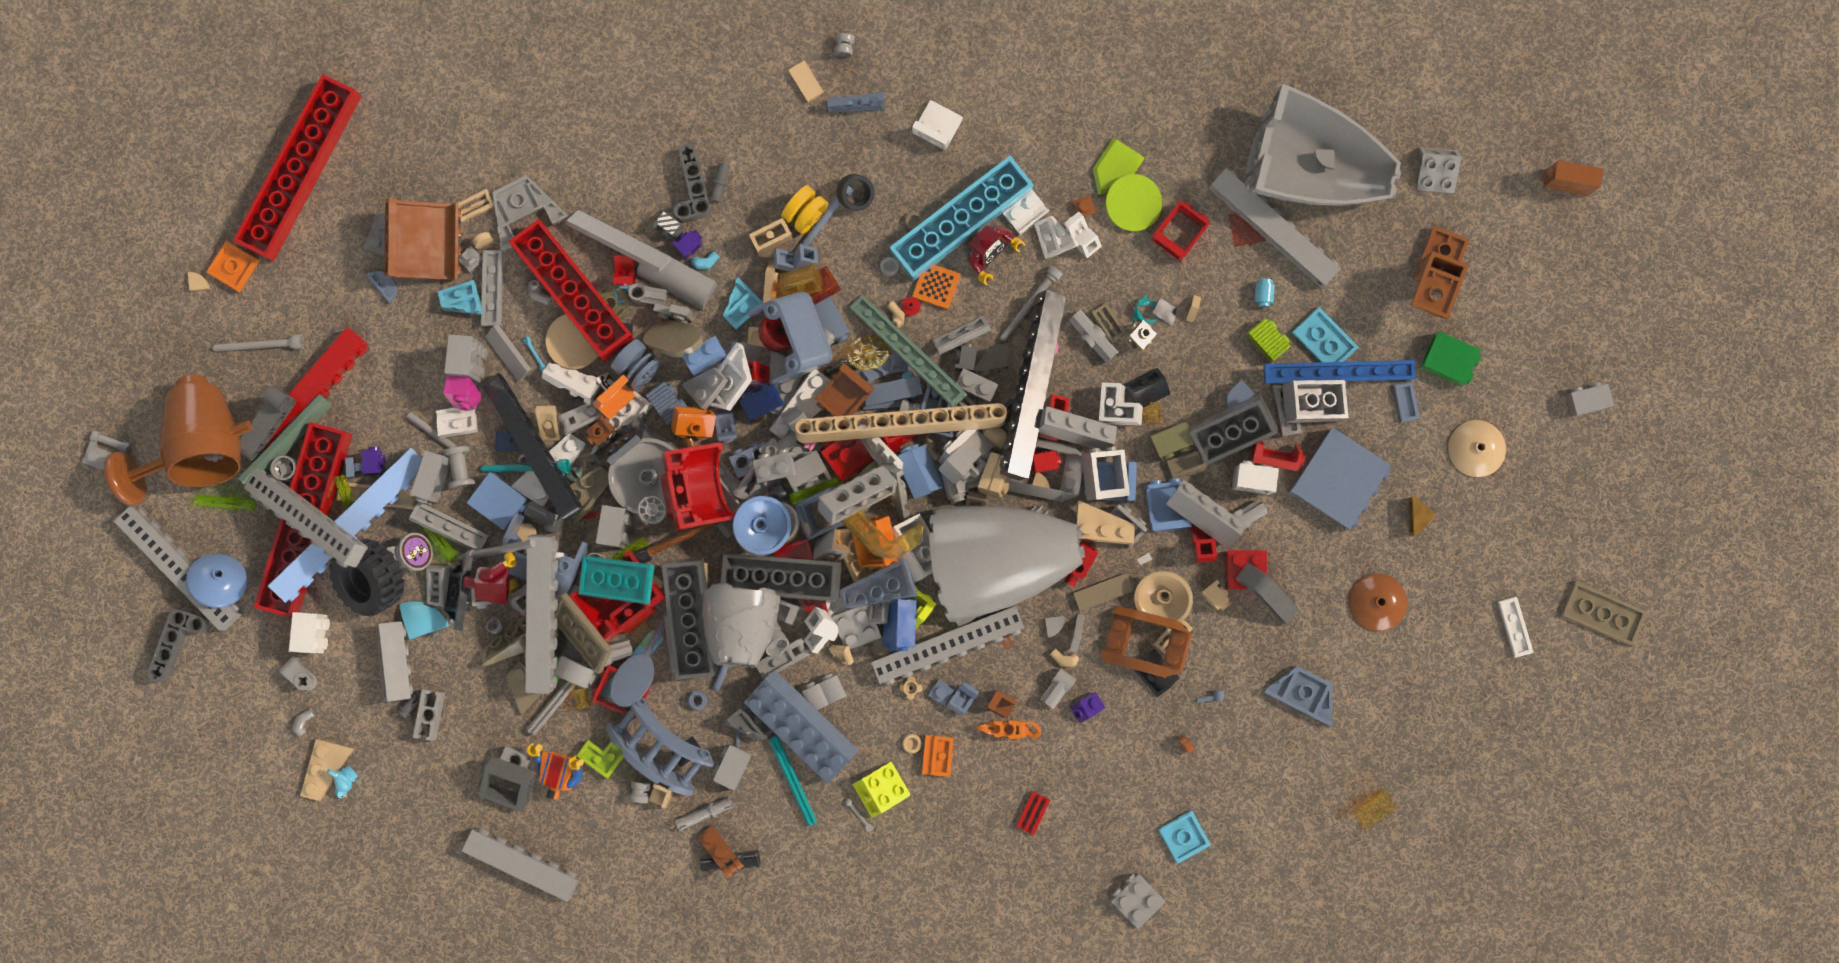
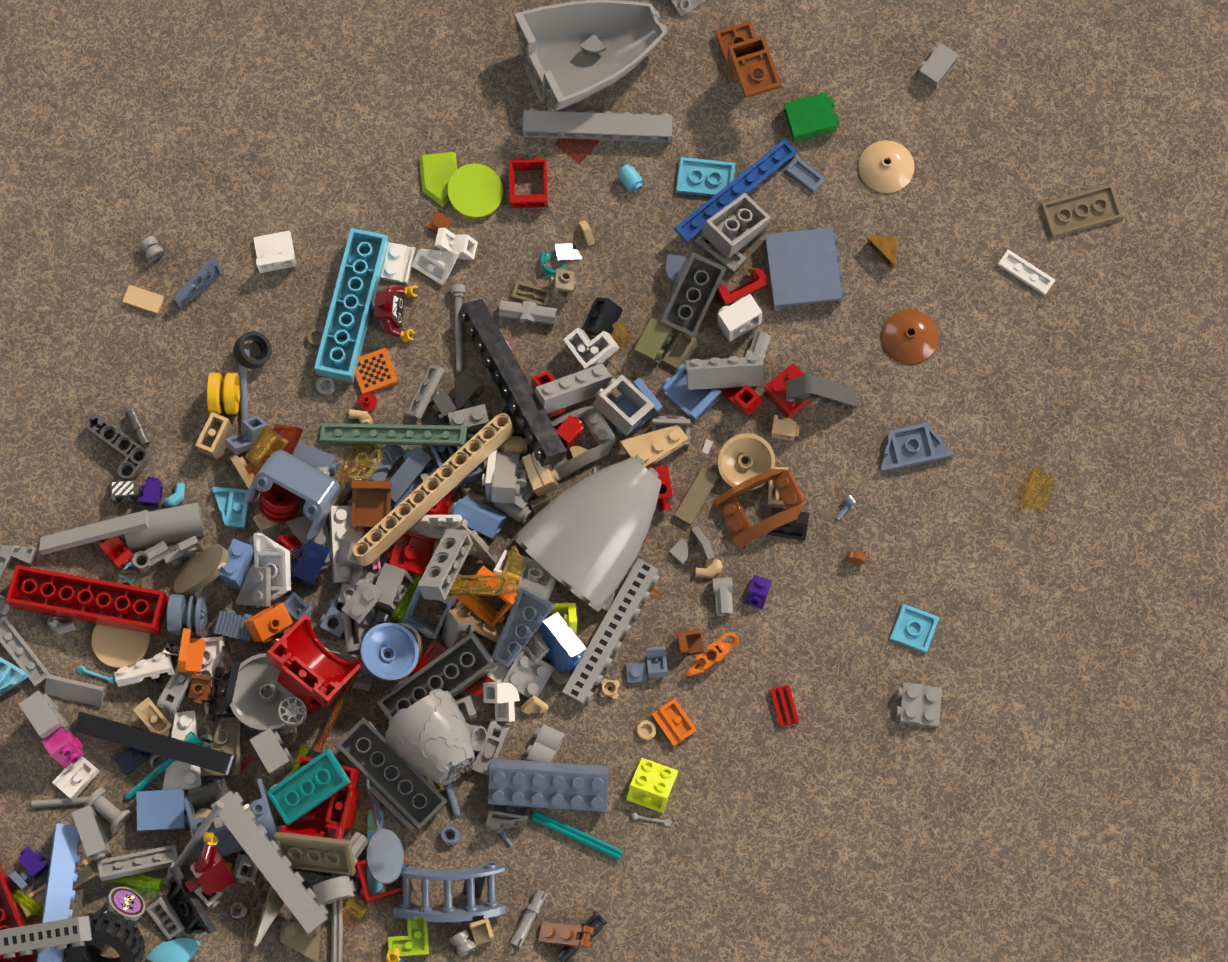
camera: 40 degrees left, 10 degrees down
(732, 766) = (520, 861): light grey brick -> none
(1268, 339) = (663, 210): lime brick -> none

